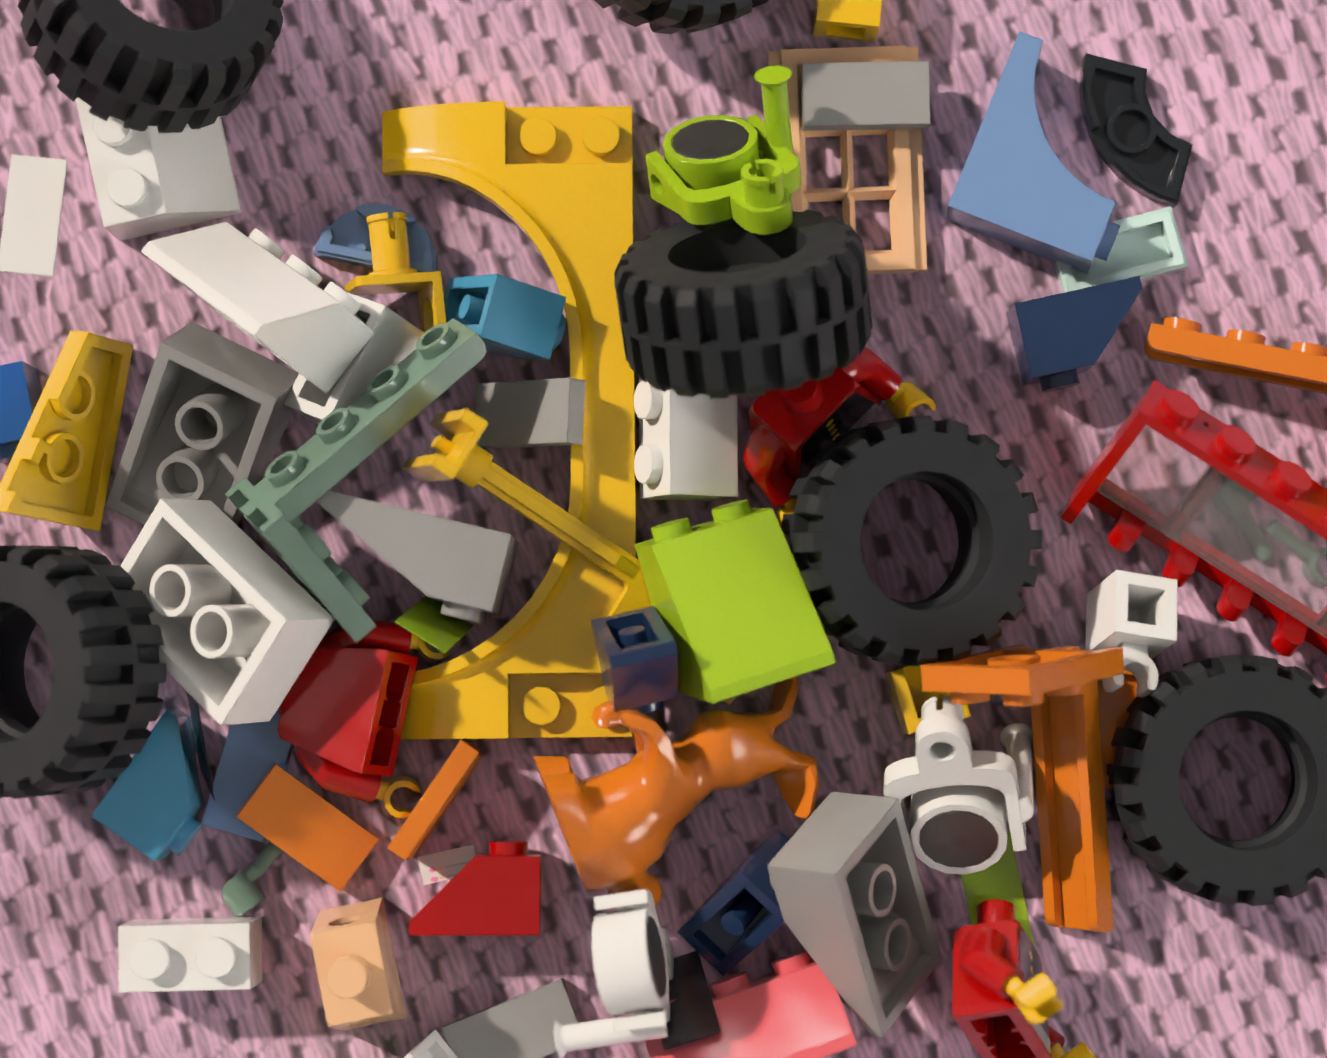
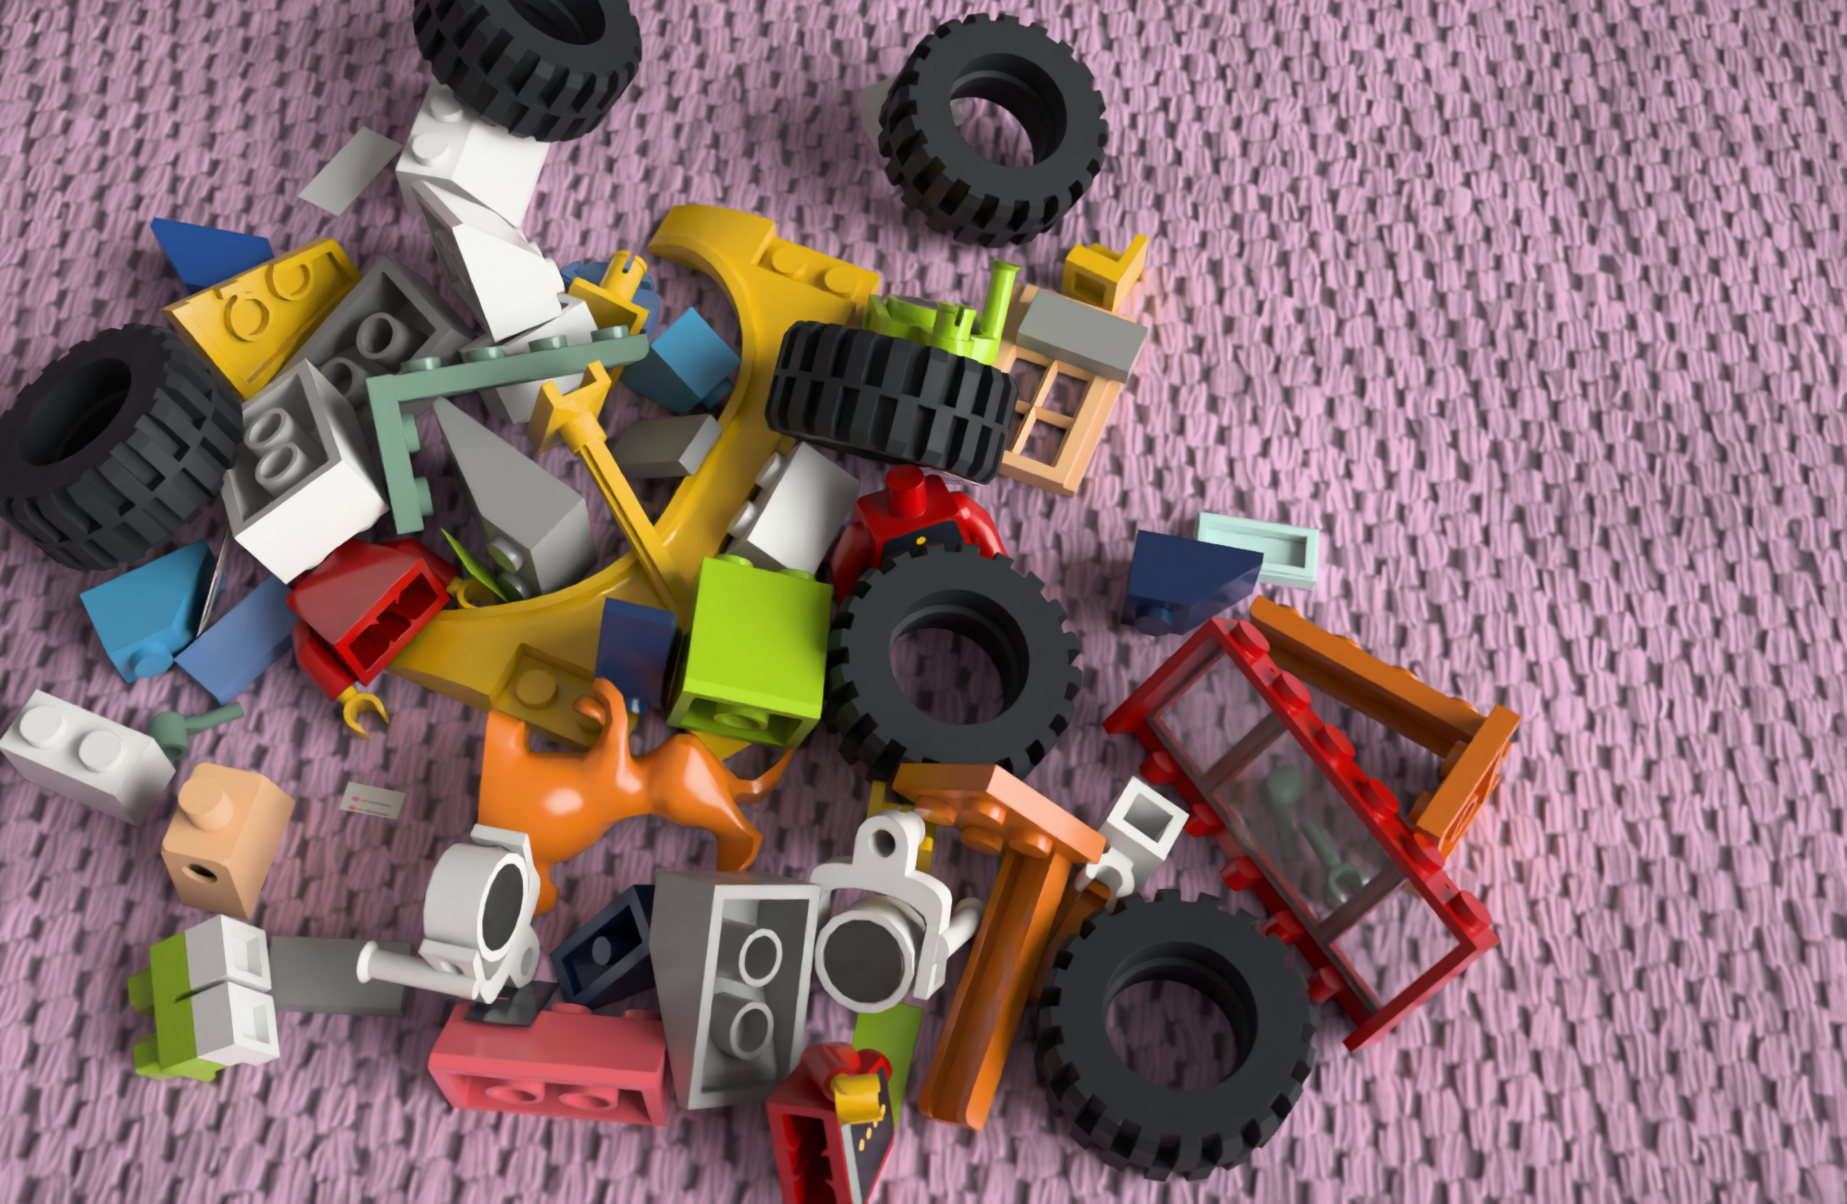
camera: 20 degrees right, 25 degrees down
(306, 827) = (264, 700): orange tile -> none
(436, 800) = (393, 726): orange tile -> none
(488, 897) = (385, 829): red slope -> none
(1017, 184) = (1184, 454): medium blue arch -> none
(1128, 132) = (1305, 462): black tile -> none

